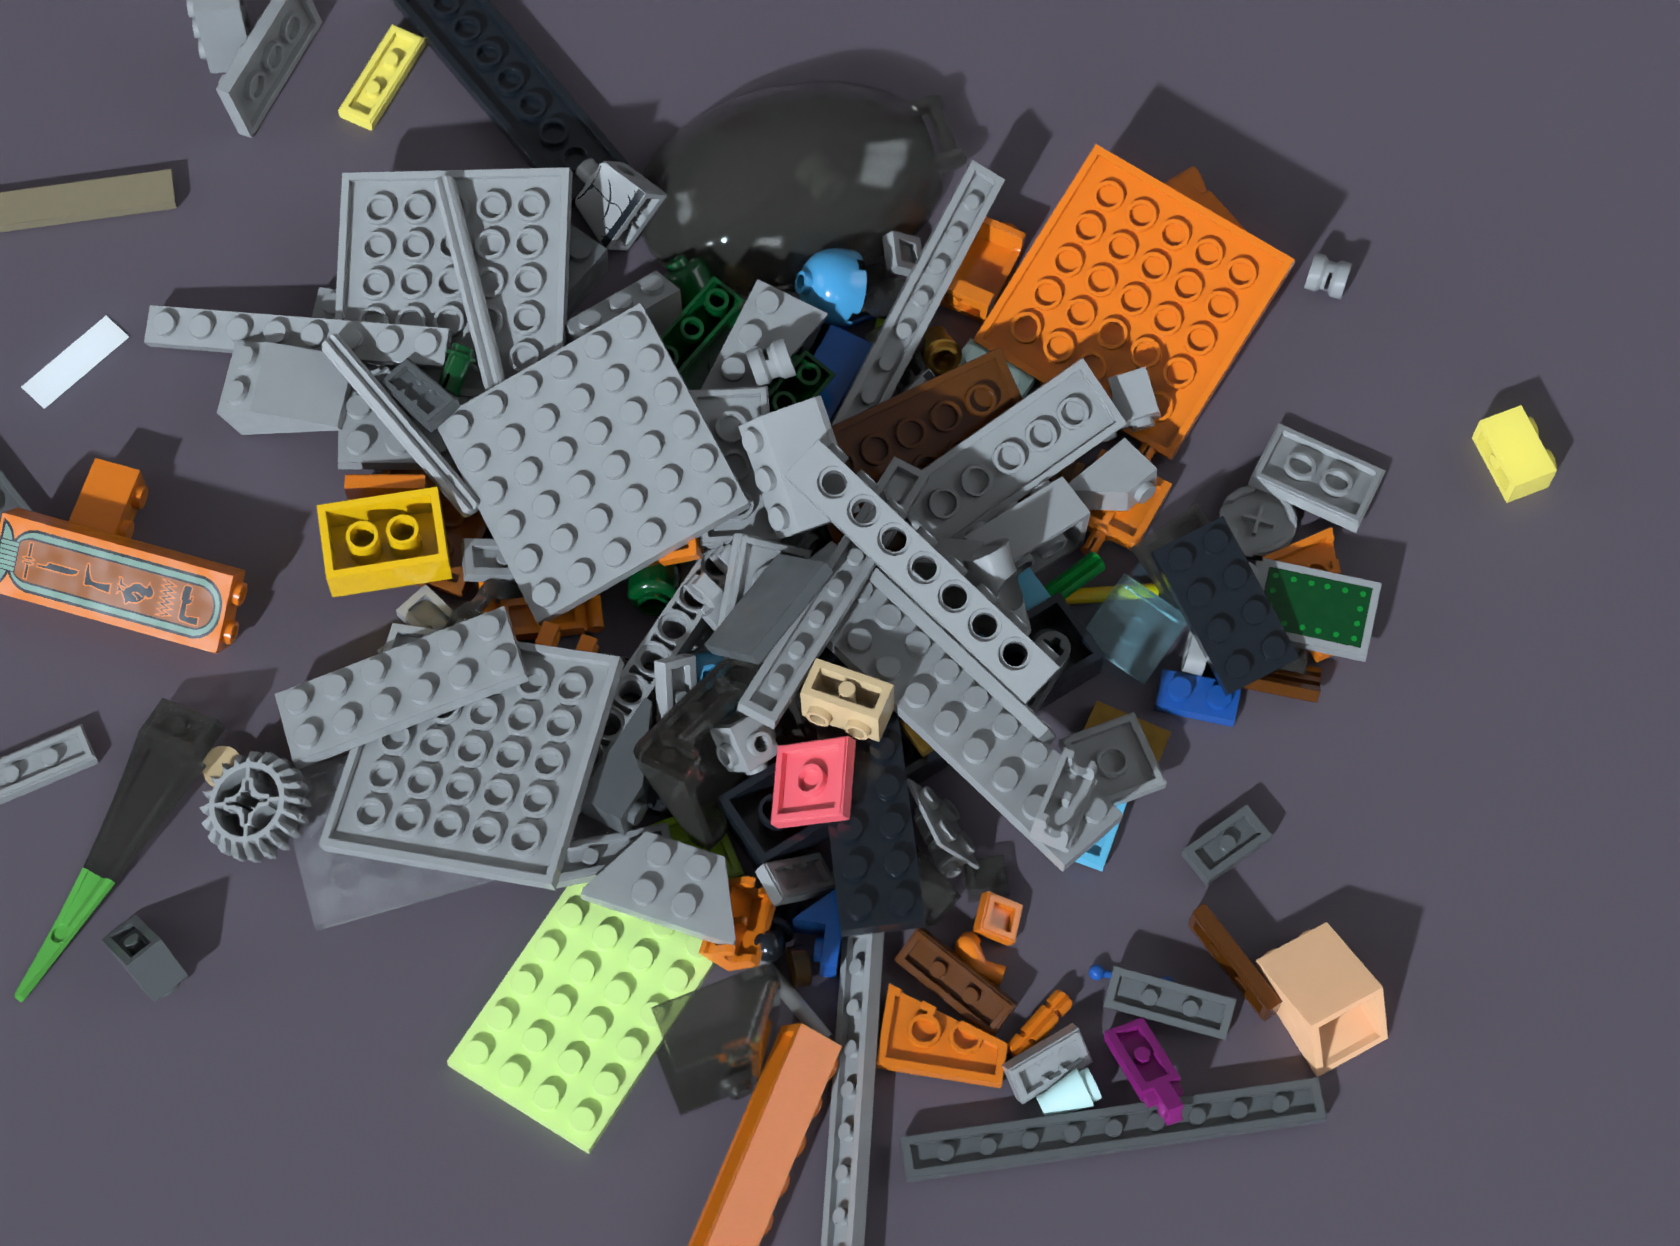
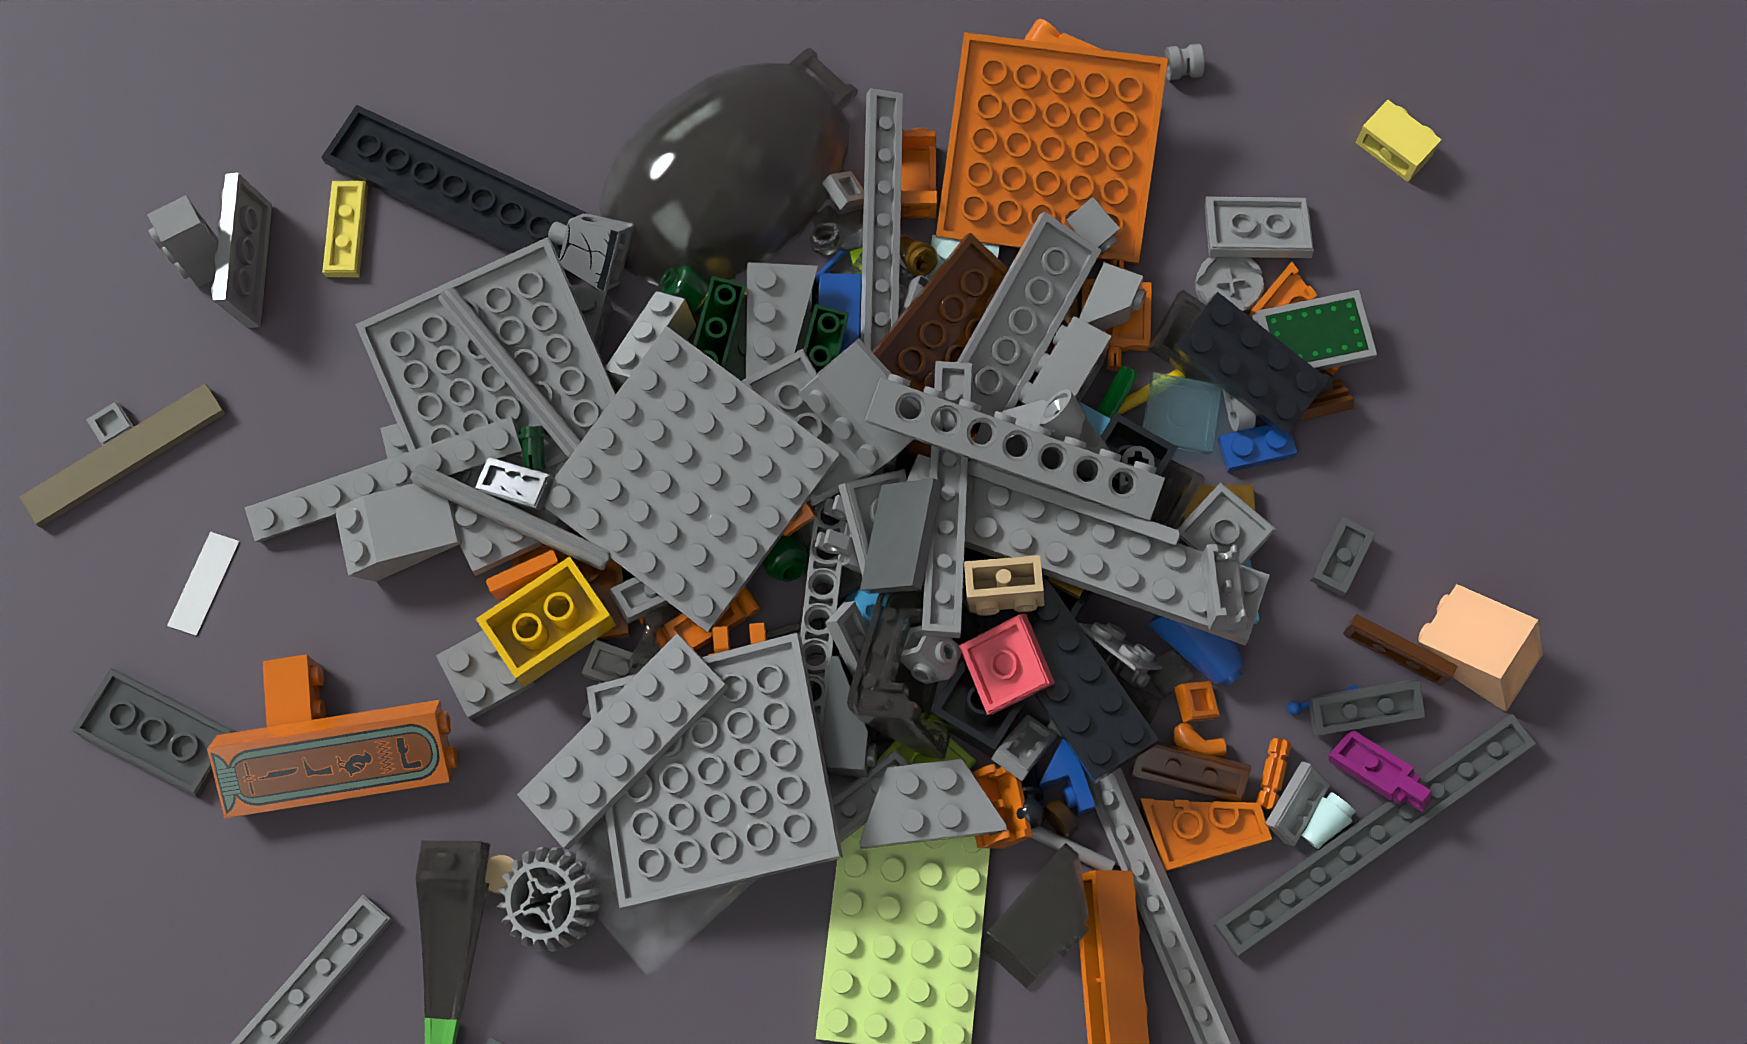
camera: 20 degrees left, 5 degrees up
(61, 167) = (110, 422): none -> light grey tile
(295, 569) = (479, 675): none -> light grey plate
(770, 362) = (795, 327): light grey wheel -> none
(833, 284) = (806, 238): dark azure cylinder -> none
(1034, 876) = (1208, 653): none -> blue cone
(1082, 712) = (1186, 499): none -> clear smoke tile

